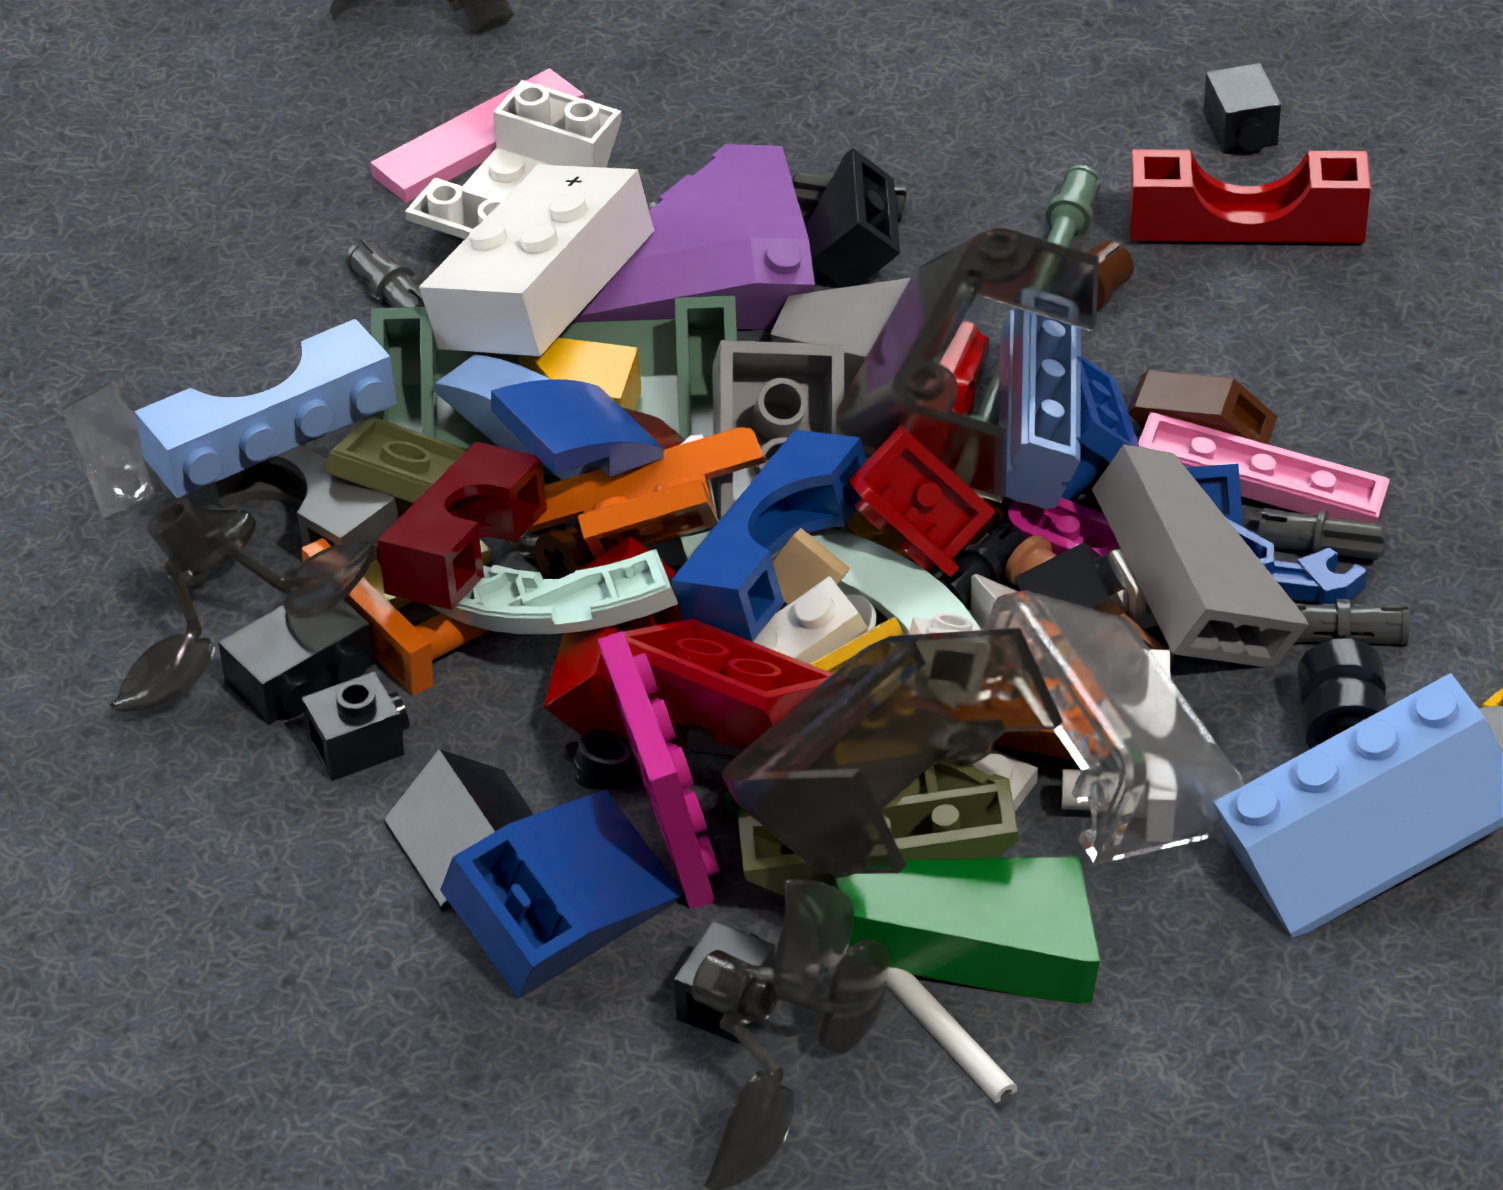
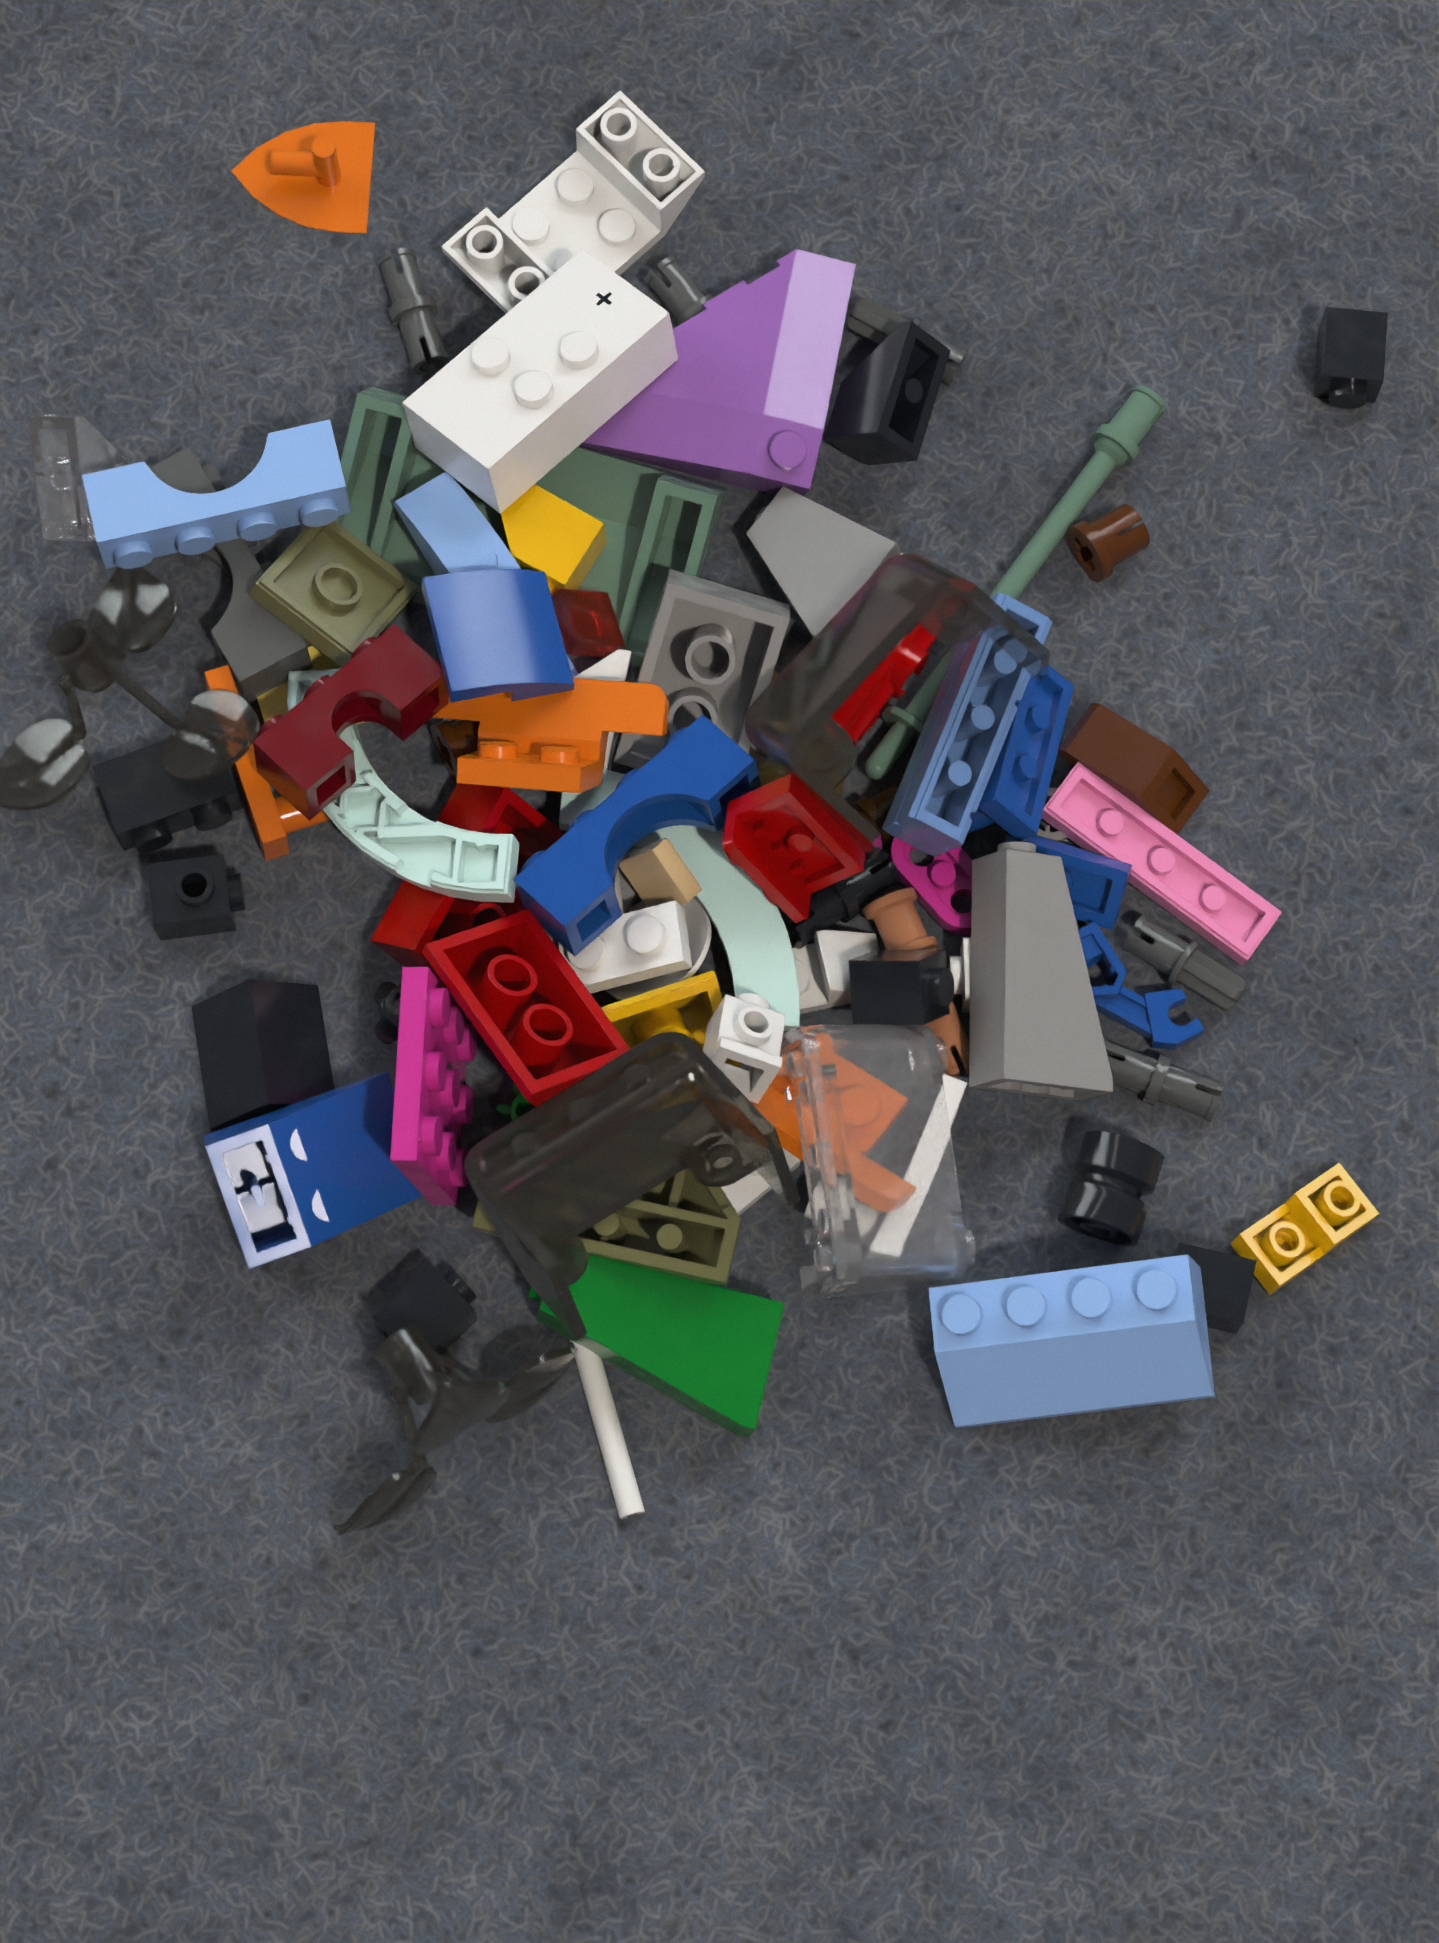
camera: 15 degrees right, 30 degrees up
(263, 224) = (315, 175): none -> orange shield
(451, 146) = (548, 123): bright pink tile -> none
(1315, 202) = (1357, 519): red arch -> none

